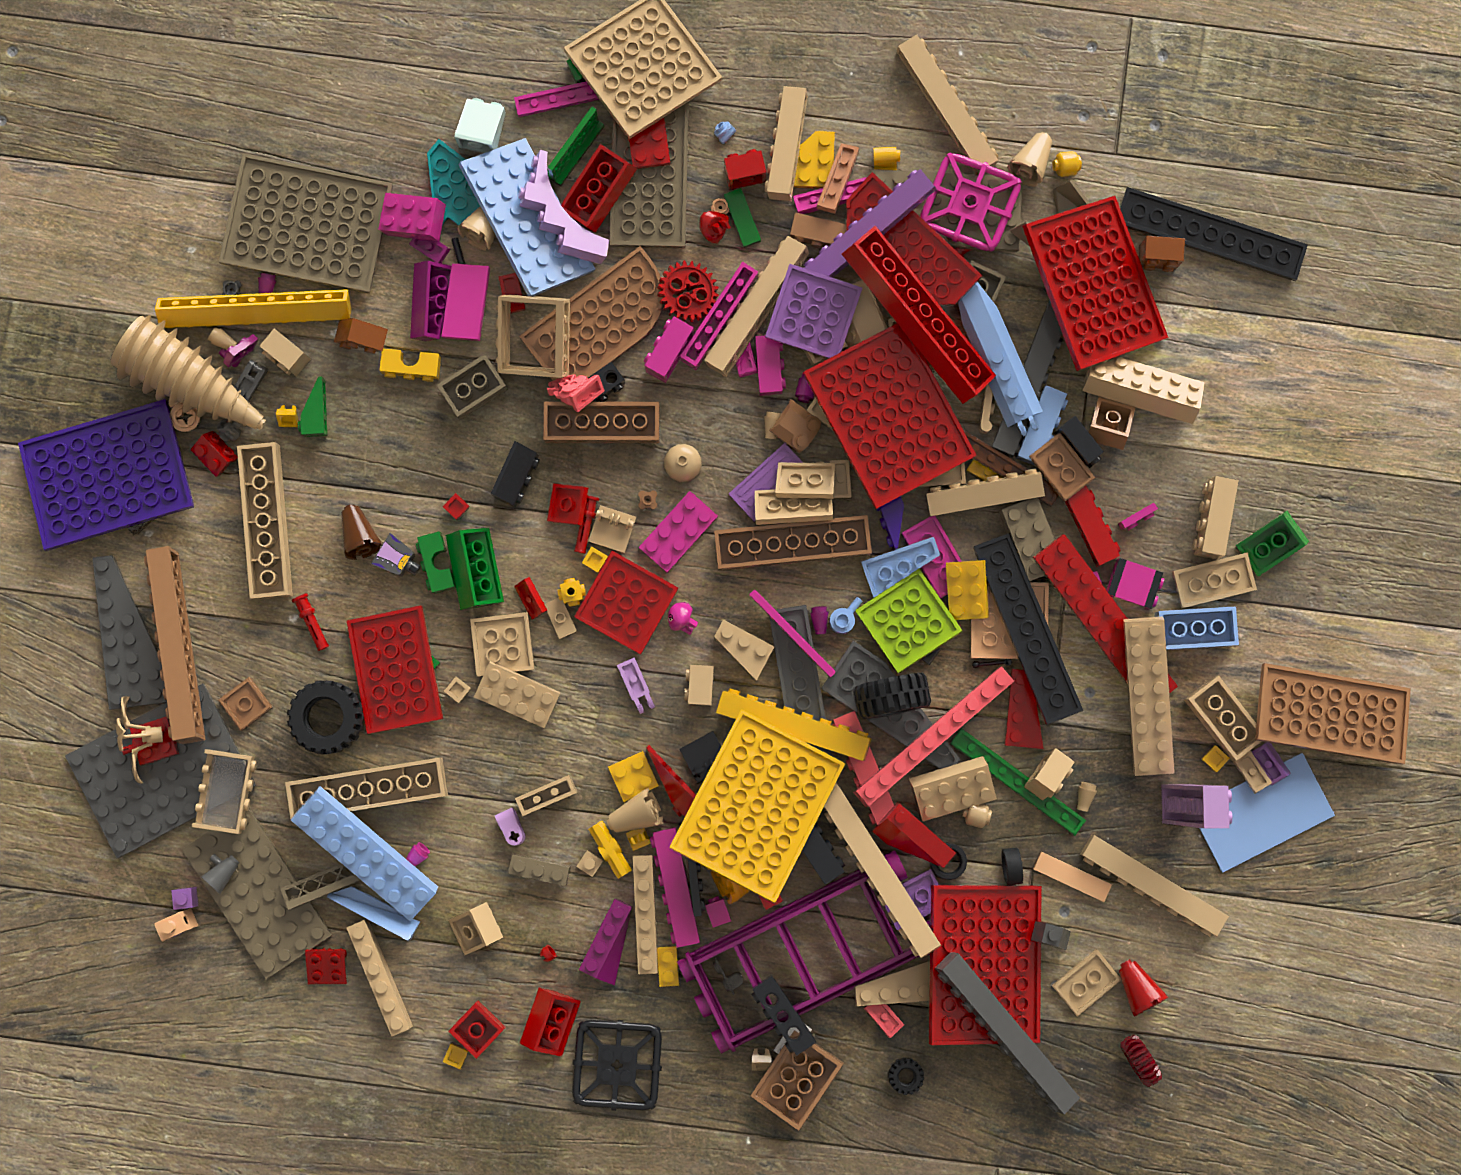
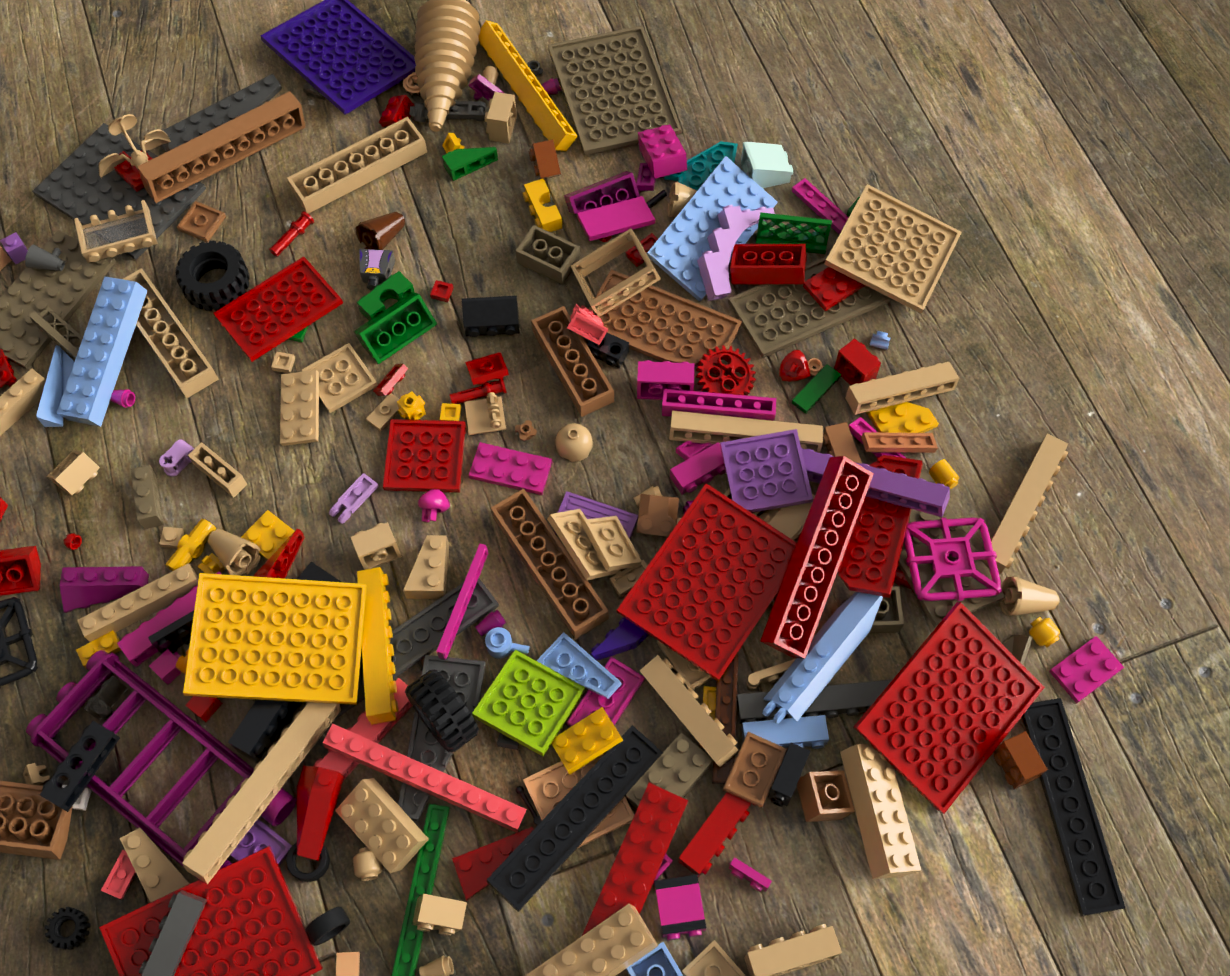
camera: 65 degrees right, 20 degrees down
(1112, 149) = (1086, 669): none -> dark pink plate

